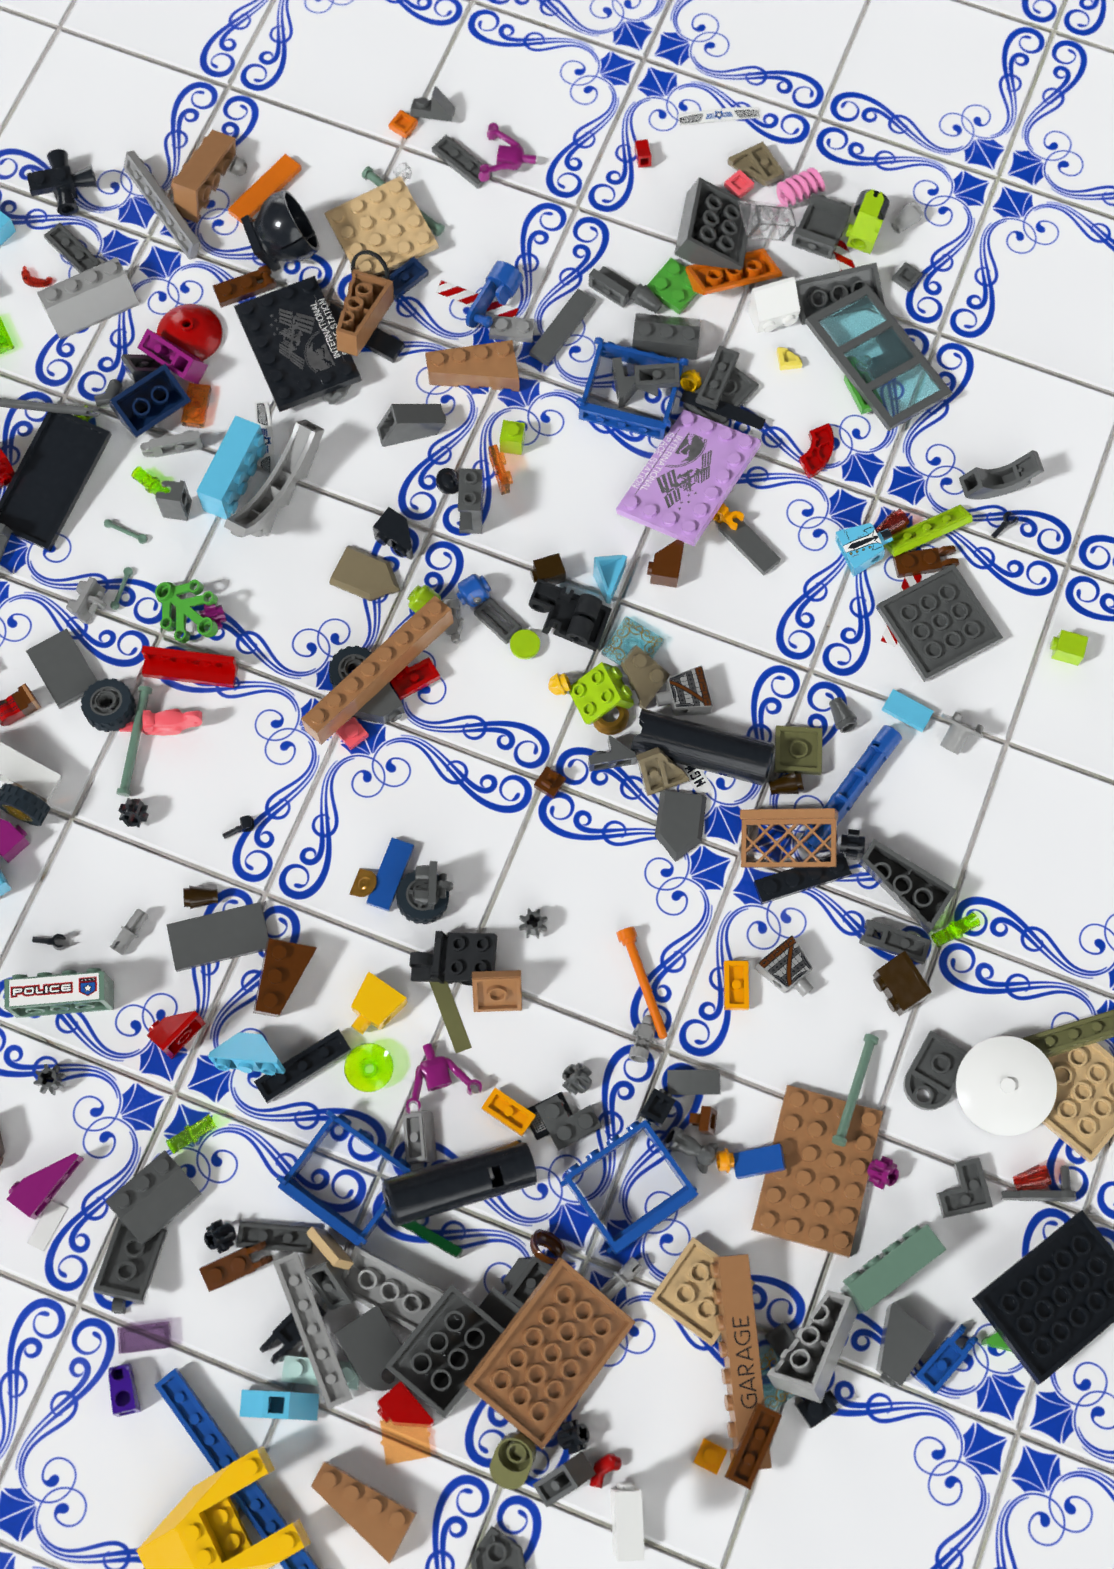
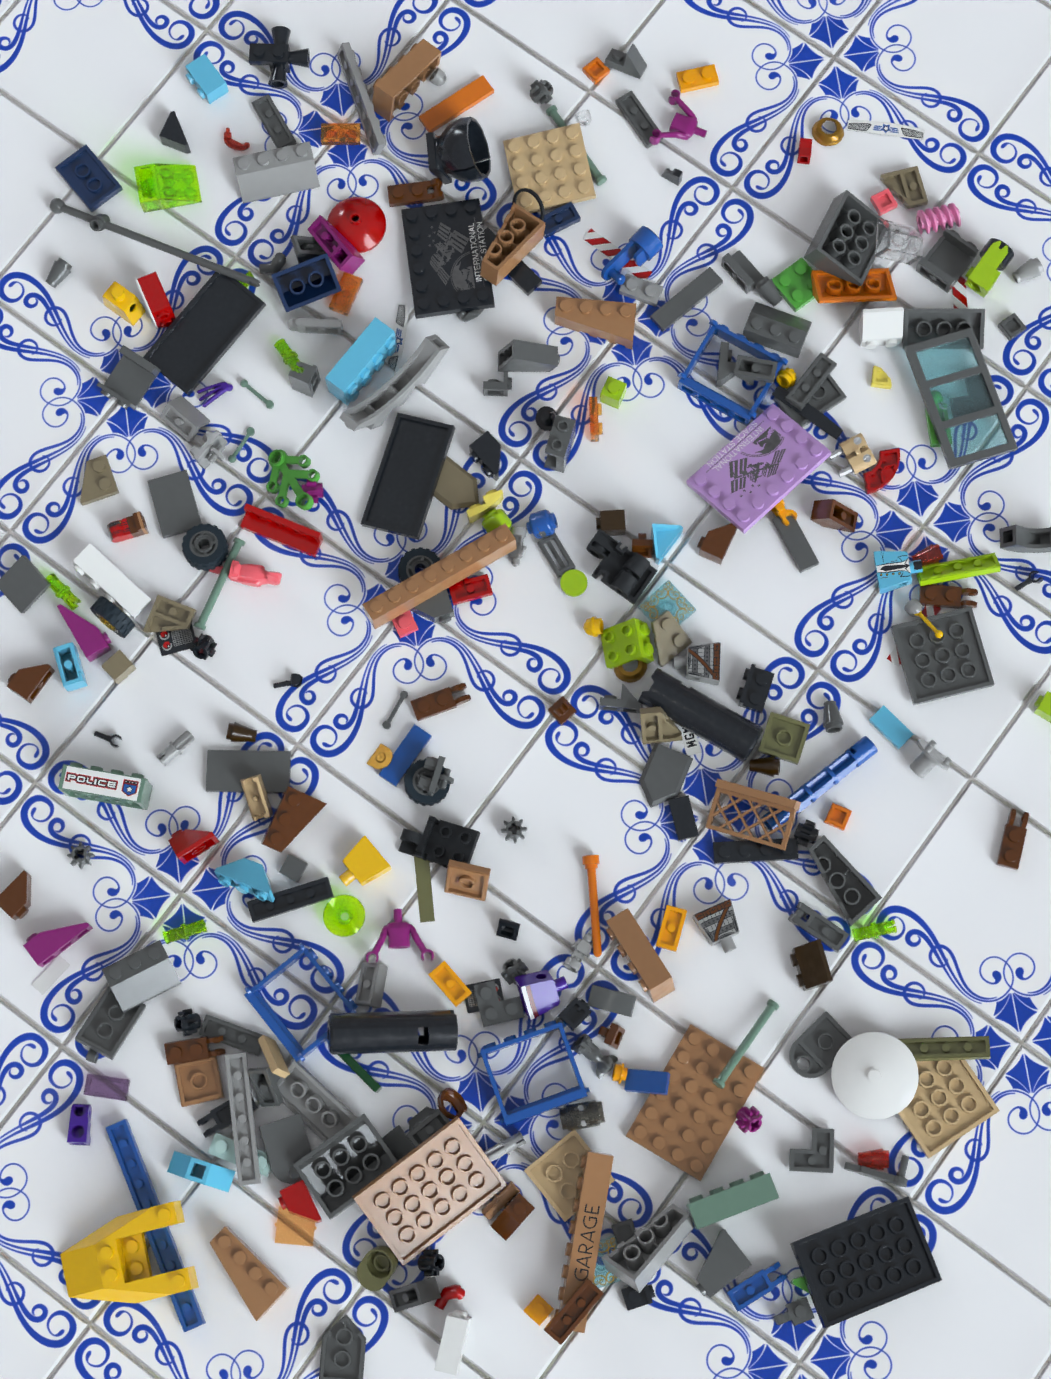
camera: 20 degrees right, 5 degrees up
(42, 858) = (118, 667): none -> dark tan panel
(50, 574) = (184, 417): none -> light grey panel
(81, 536) = (219, 389): none -> dark purple piece
(86, 789) = (169, 616): none -> dark tan wing
(99, 812) = (175, 641): none -> black sticker
(148, 245) = (340, 134): none -> clear orange plate
(235, 962) = (256, 797): none -> tan hinge
(250, 1301) = (199, 1081): none -> medium nougat tile
(297, 1030) = (293, 868): none -> dark grey tile
(314, 576) = (408, 476): none -> black tile
(351, 155) = (541, 91): none -> dark grey gear
(360, 846) = (387, 724): none -> dark grey hinge
(385, 462) = (496, 388): none -> dark grey bracket
(411, 578) = (490, 500): none -> light yellow slope
(412, 807) = (438, 702): none -> reddish brown hinge
(511, 108) = (697, 78): none -> light orange plate
(513, 208) = (673, 176): none -> black tile
(556, 1034) = (508, 929): none -> black slope
(588, 585) = (642, 545): none -> reddish brown tile
(611, 1094) = (539, 992): none -> torso
(632, 1342) = (500, 1201): none -> medium nougat axle
(651, 1356) = (512, 1216): none -> reddish brown slope
(660, 137) = (827, 139): none -> pearl gold piece
(707, 1213) = (591, 1113): none -> clear smoke piece
(712, 1023) = (641, 955): none -> medium nougat wedge
(714, 863) = (683, 818): none -> black tile
(752, 706) = (756, 689): none -> black bracket
(782, 506) = (834, 515): none -> reddish brown slope
(787, 439) = (857, 454): none -> tan piece
(880, 818) = (838, 816): none -> orange tile
(895, 581) = (915, 609): none -> hinge
(1000, 1375) = (797, 1311): none -> dark grey plate
(1072, 796) = (1012, 841): none -> reddish brown hinge

